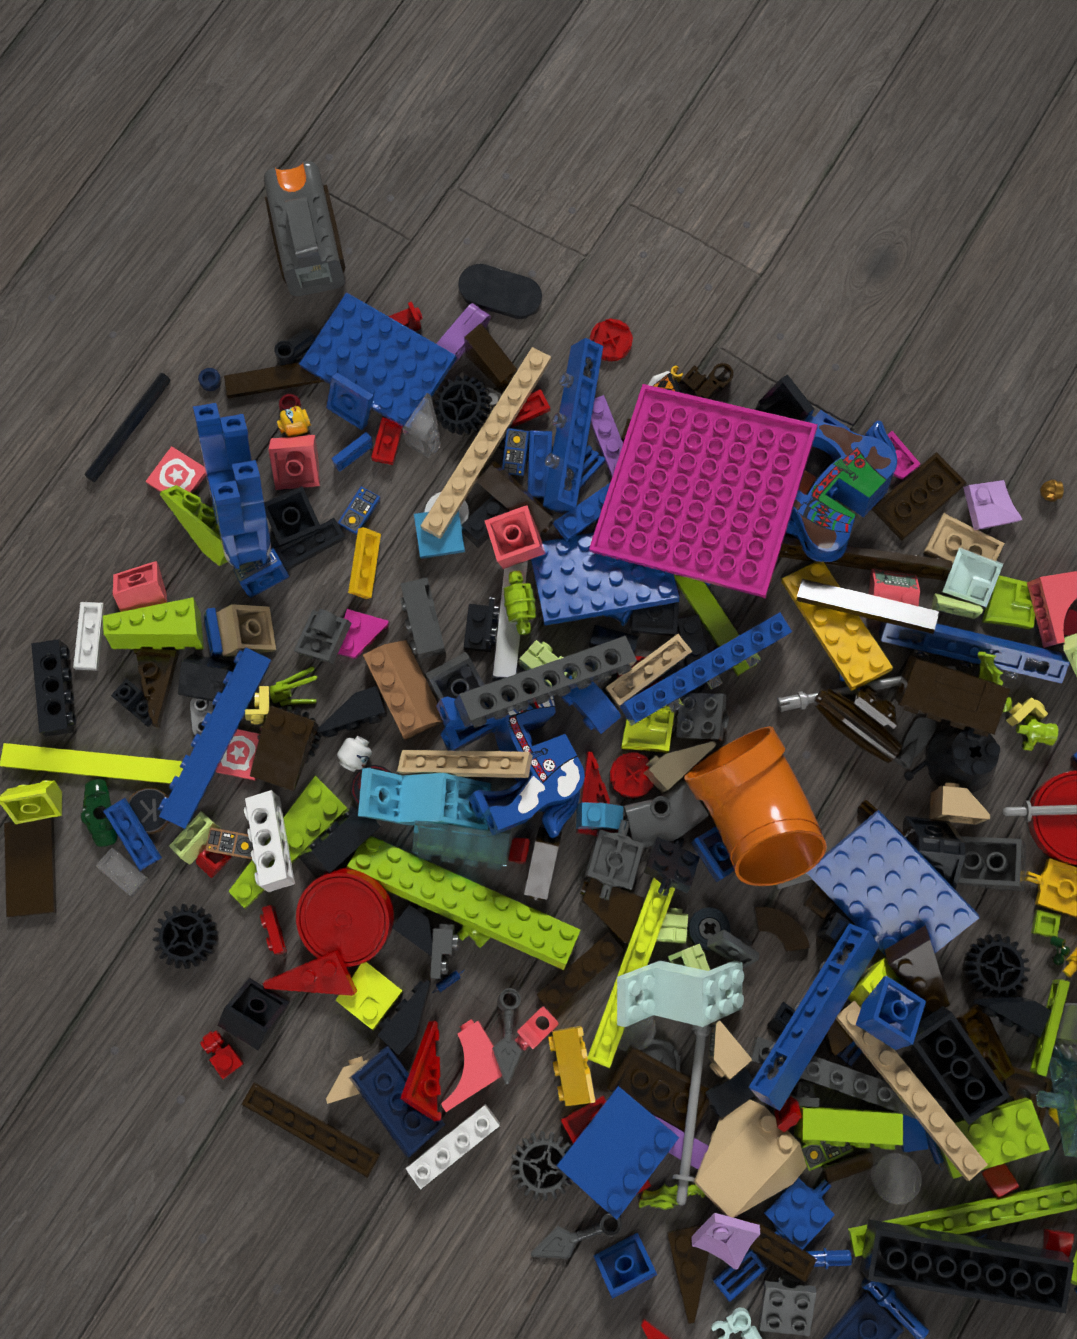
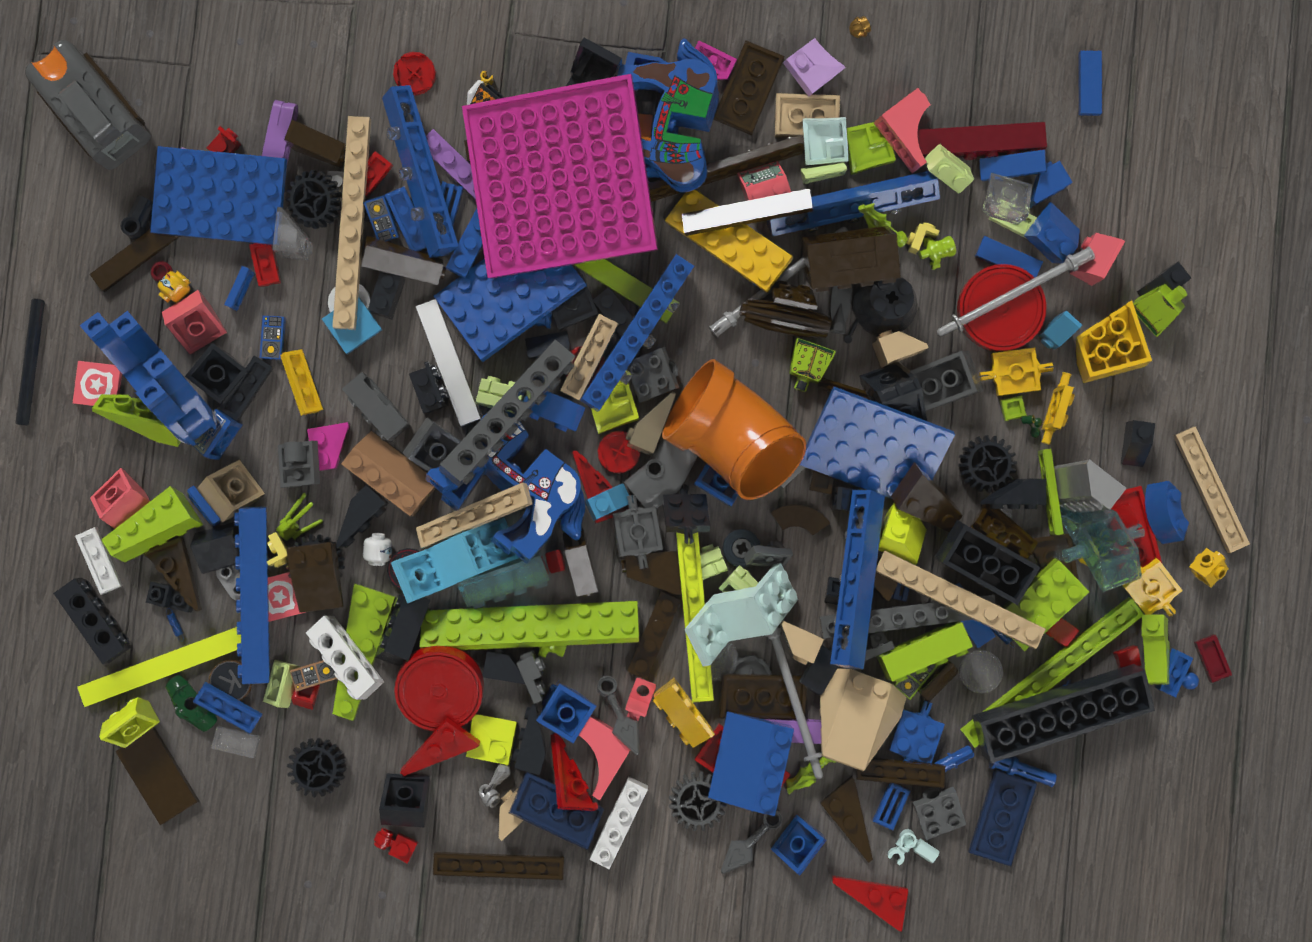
camera: 30 degrees left, 10 degrees up
(126, 730) = (174, 624): none -> blue piece
(209, 379) = (78, 283): dark blue tile -> none
(270, 921) = (380, 720): red plate -> none
(339, 1054) = (491, 796): none -> light grey piece
(349, 401) = (213, 245): blue plate -> none
(456, 1005) = (566, 712): none -> blue slope
(500, 291) = (293, 75): black tile -> none
(514, 537) = (418, 298): coral slope -> none
(519, 602) = (451, 353): lime piece -> none
(707, 386) = (519, 77): dark brown piece -> none
(726, 1238) = (867, 785): lavender plate -> none
(788, 1115) = (872, 667): red plate -> none
(860, 779) = (809, 363): none -> lime torso
(891, 1014) = (918, 548): blue slope -> none

